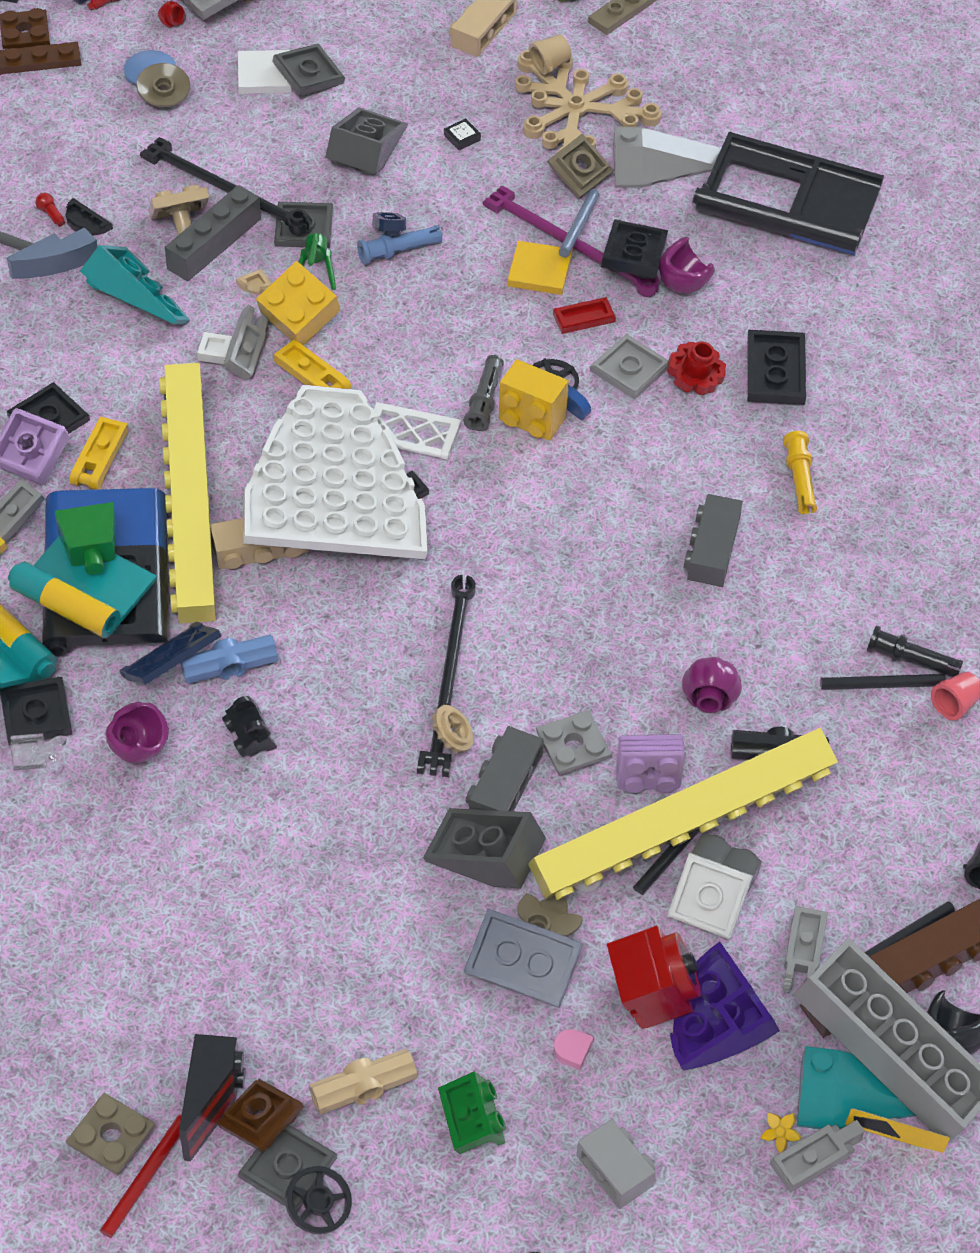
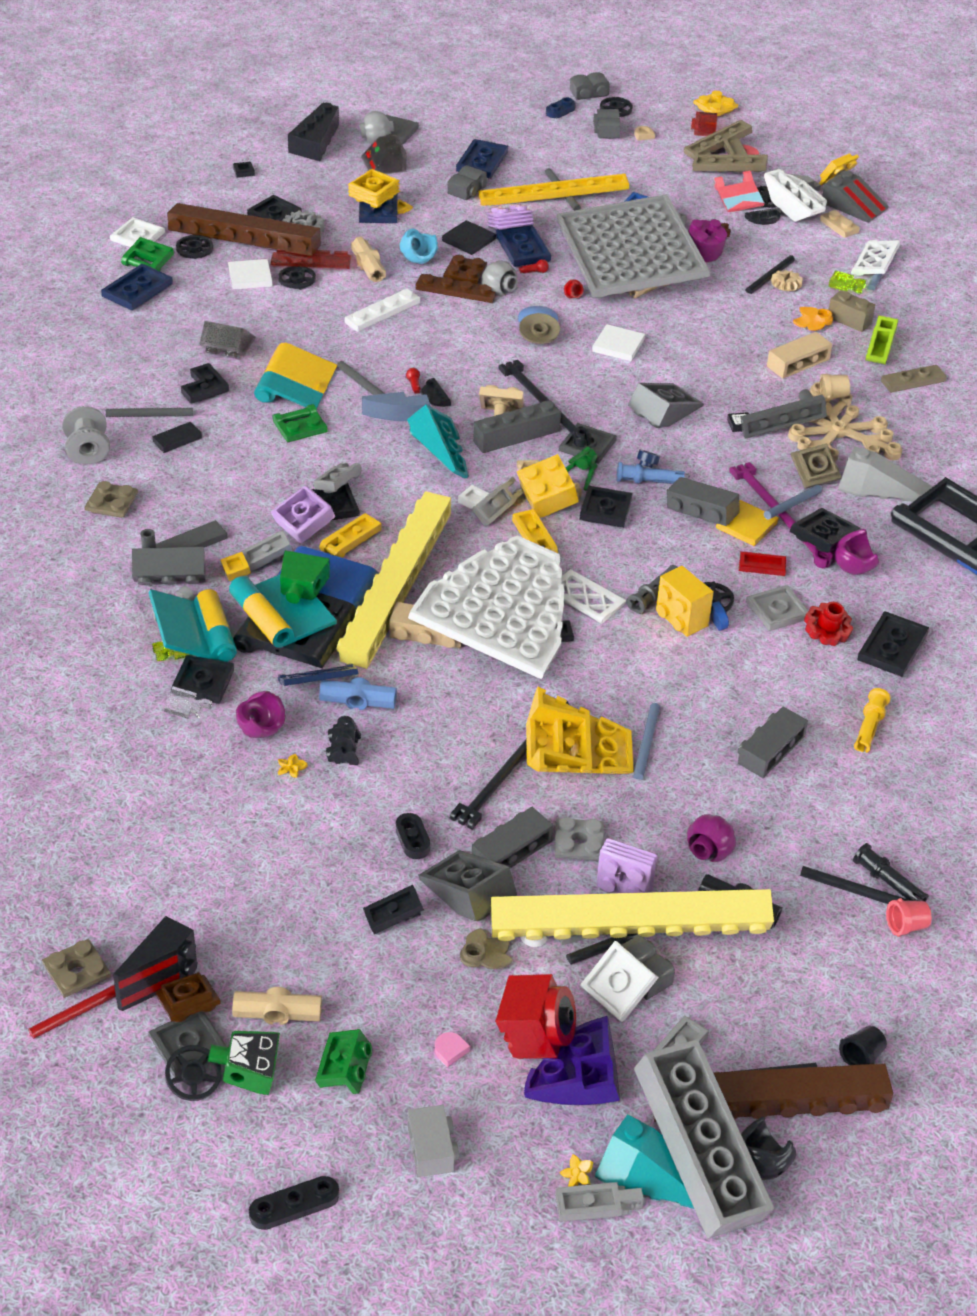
camera: 25 degrees right, 10 degrees down
(40, 380) = (337, 476): none -> light grey hinge
(74, 27) = (500, 276): none -> light grey plant
(203, 779) = (292, 765): none -> yellow plant
(308, 69) = (650, 349): dark grey tile -> none
(373, 304) = (606, 506): none -> black plate
(373, 1159) = (248, 1059): none -> torso
(393, 814) = (414, 837): none -> black plate
(424, 912) = (393, 909): none -> black hinge
(444, 720) = (495, 788): tan gear -> none
(481, 259) = (703, 501): none -> dark grey brick
(505, 625) = (573, 740): none -> yellow wedge
(514, 111) = (784, 416): none -> dark grey piece
(523, 958) = (448, 968): plate -> none
(578, 591) = (646, 741): none -> sand blue bar
(898, 1131) = (673, 1212): yellow sticker -> none

